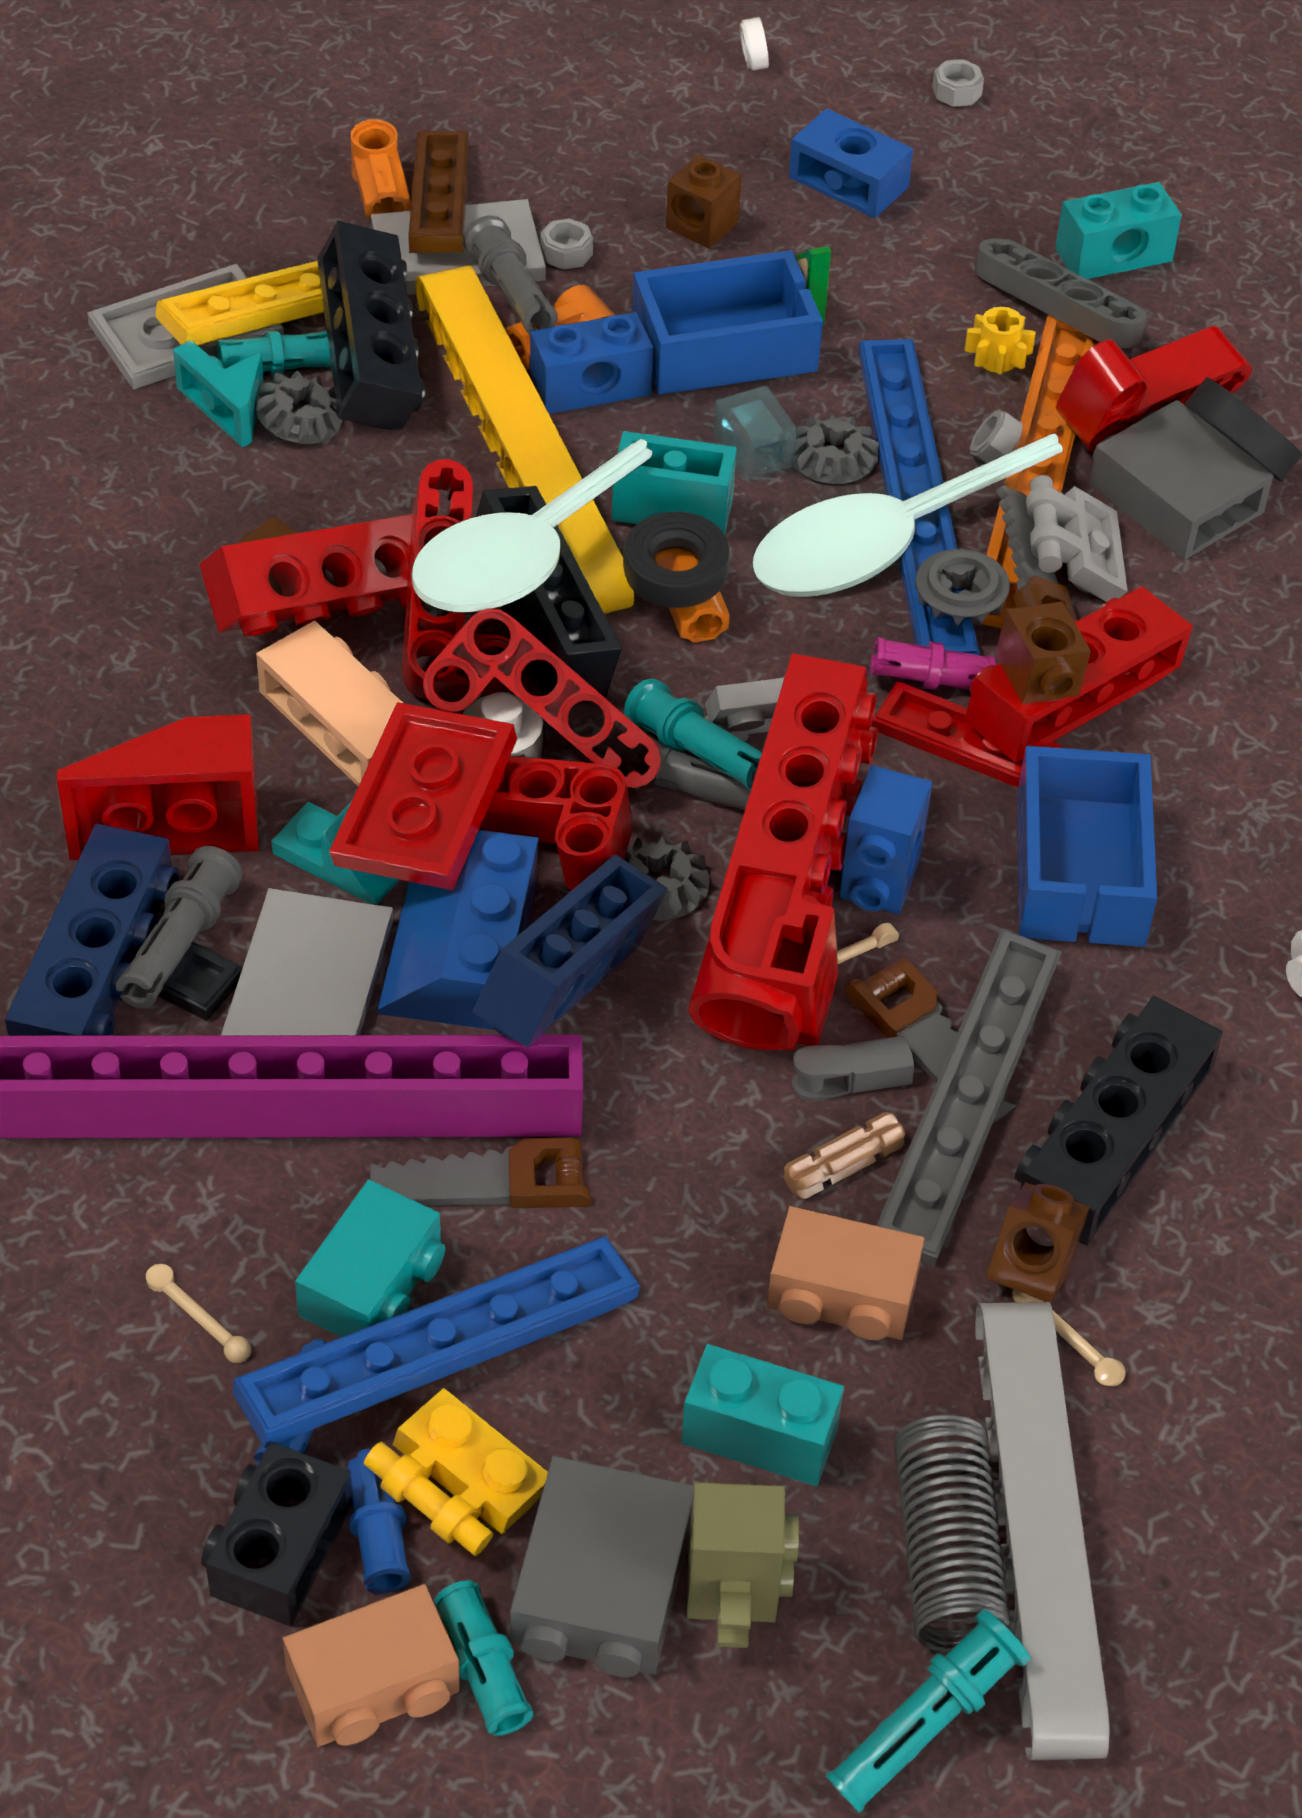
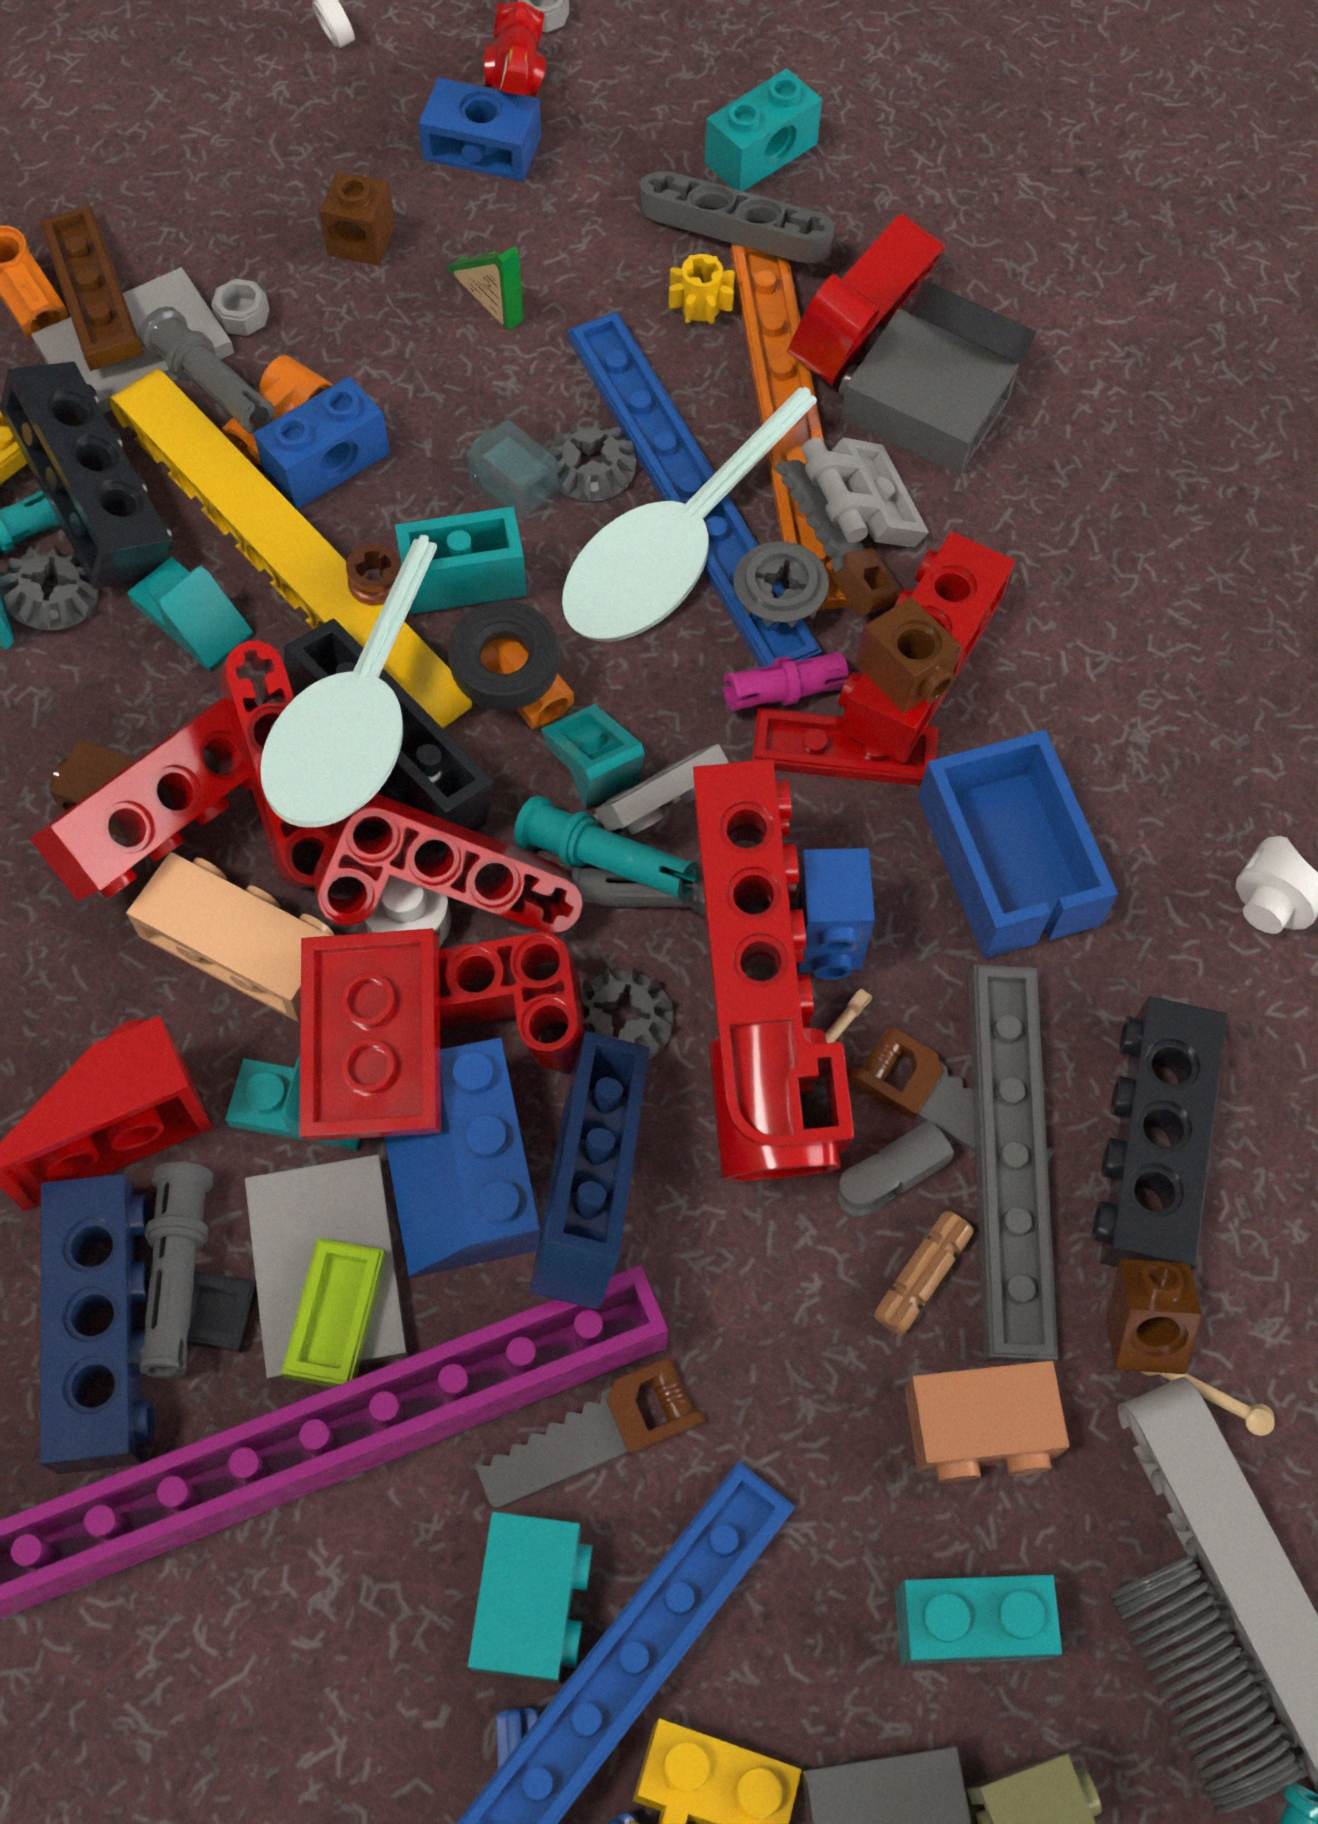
camera: 20 degrees left, 15 degrees up
(161, 1278) = (318, 1686): tan hinge -> none
(305, 996) = (334, 1313): none -> lime tile
(406, 450) = (191, 611): none -> teal slope
(581, 454) = (367, 558): none -> copper bush
(726, 662) = (597, 753): none -> teal slope
(728, 321) = (439, 353): blue piece -> none
(908, 110) = (512, 59): none -> red animal
(996, 437) = (742, 401): light grey tile -> none

